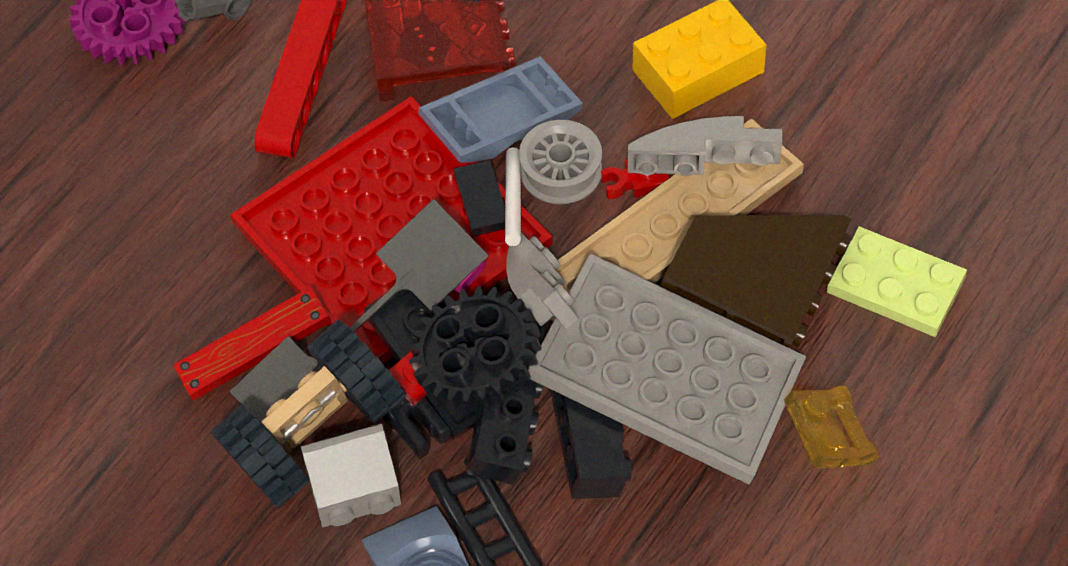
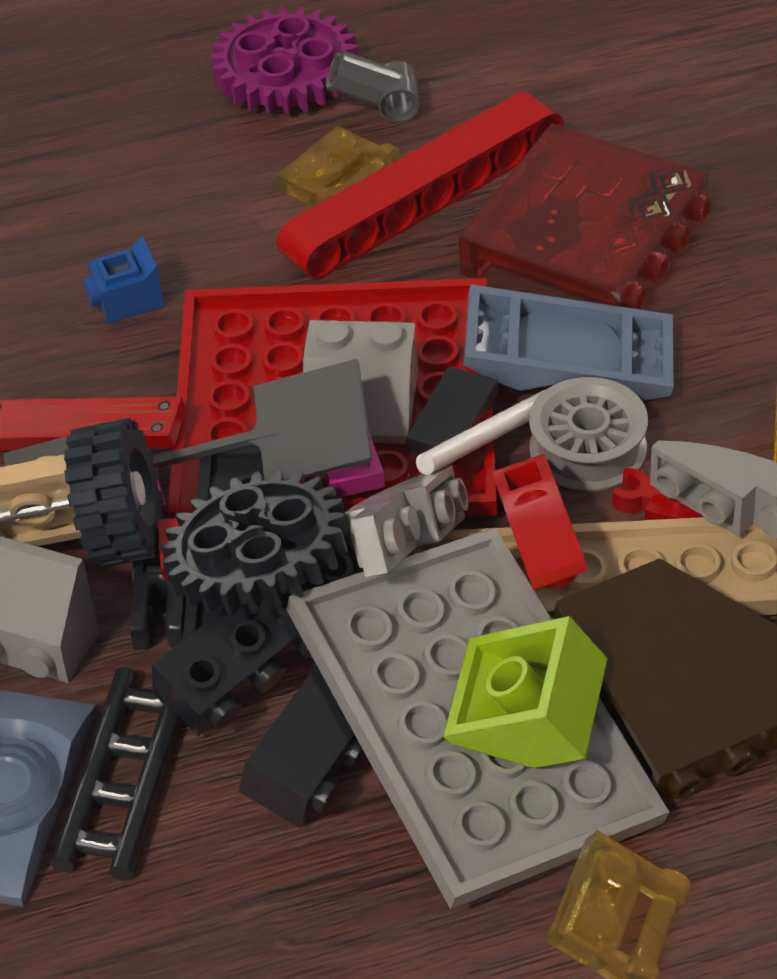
camera: 40 degrees right, 10 degrees down
(183, 232) = (124, 283): none -> blue window
(228, 72) = (333, 165): none -> clear yellow plate
(402, 194) = (386, 367): none -> light grey slope
(599, 232) = (540, 523): none -> red slope
(698, 339) = (528, 694): none -> lime slope

